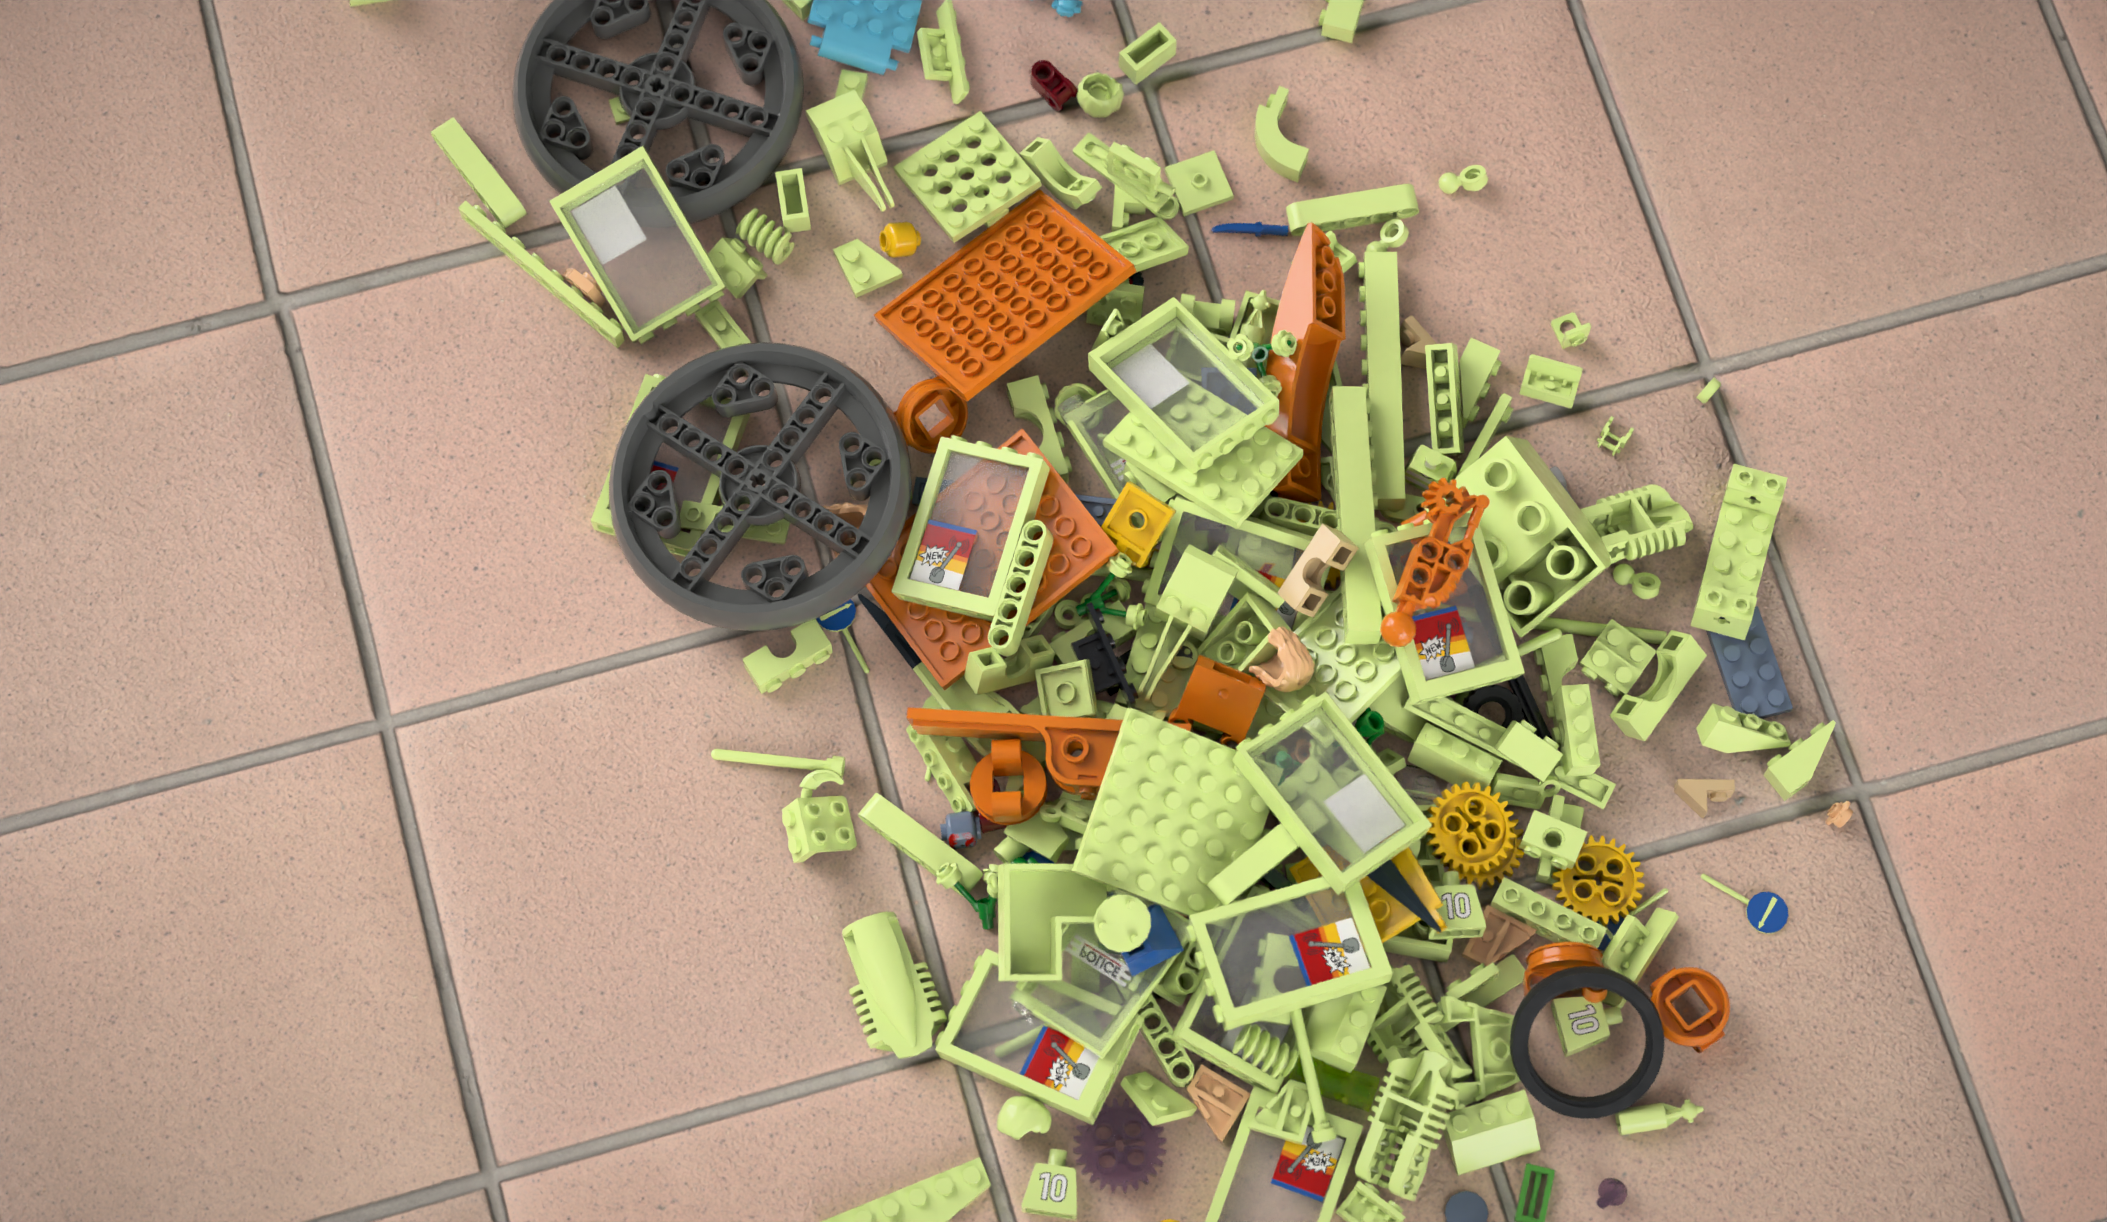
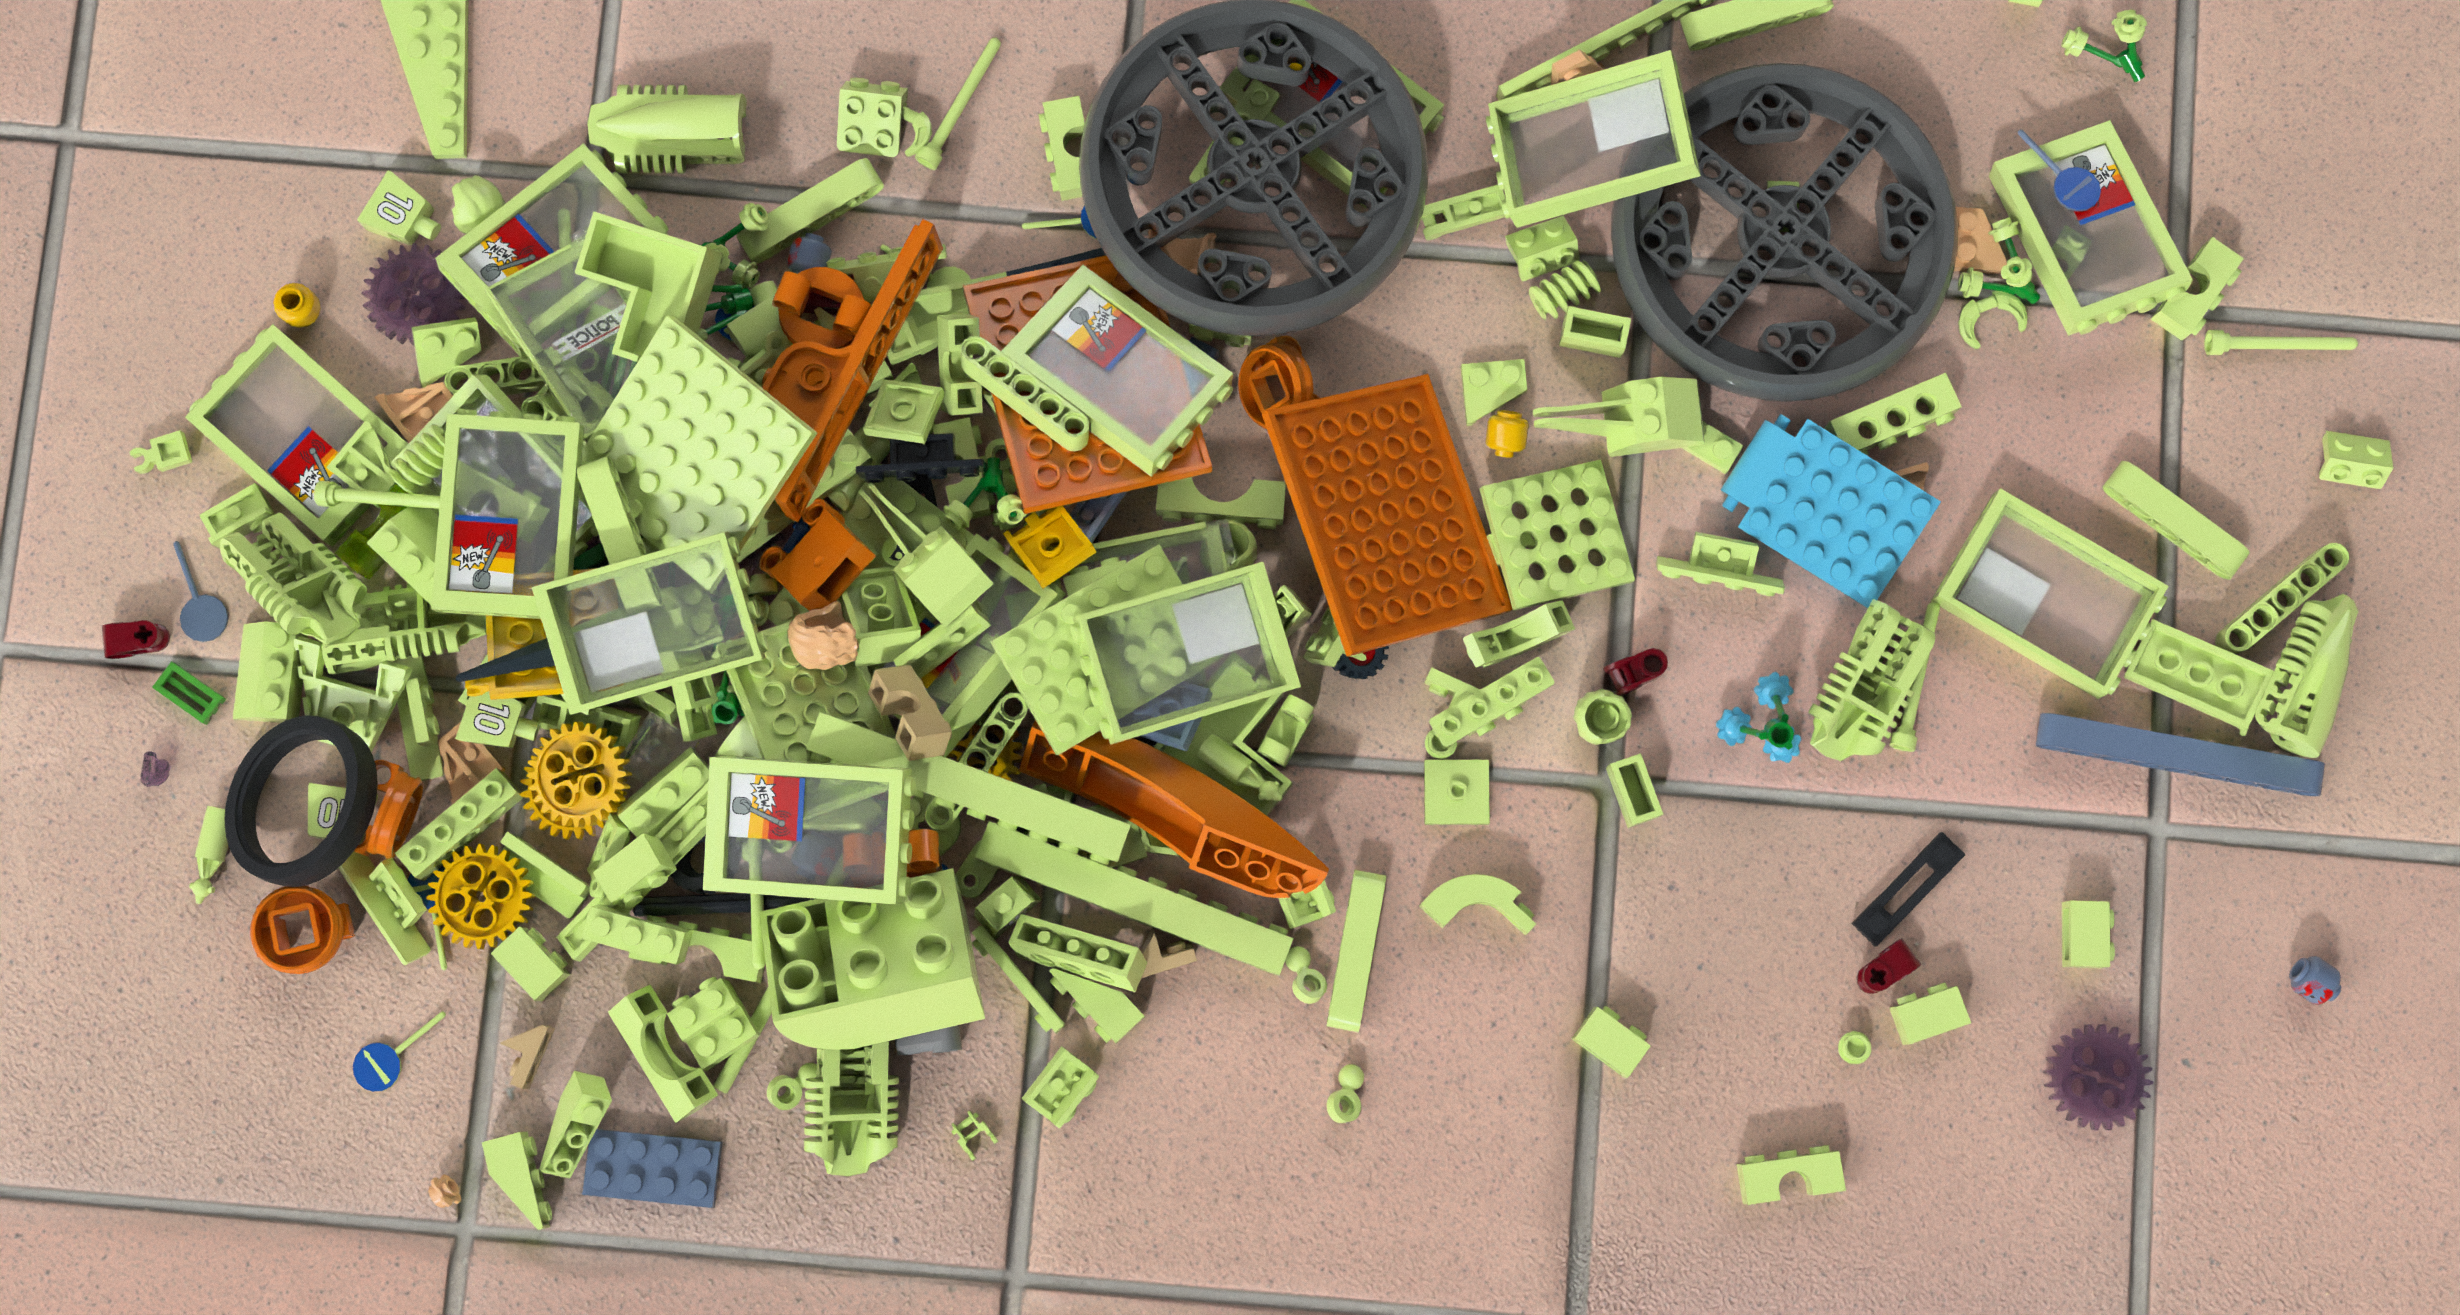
camera: 110 degrees right, 10 degrees up
(1122, 923) = (594, 344): yellowish green piece -> none
(1133, 169) = (1467, 713): yellowish green plate -> none
(1147, 243) = (1395, 691): yellowish green plate -> none
(1158, 945) = (586, 374): blue slope -> none
(1242, 348) = (1197, 728): yellowish green plant -> none
(1251, 228) = (1376, 836): blue piece -> none
(1437, 576) = (824, 824): orange arm -> none
(1568, 836) = (548, 853): yellowish green brick -> none
(1571, 337) = (1105, 1139): yellowish green bracket -> none
(1633, 818) = (531, 963): none -> yellowish green brick
(1709, 390) = (982, 1265): yellowish green tile -> none
(1738, 552) = (773, 1208): yellowish green plate -> none

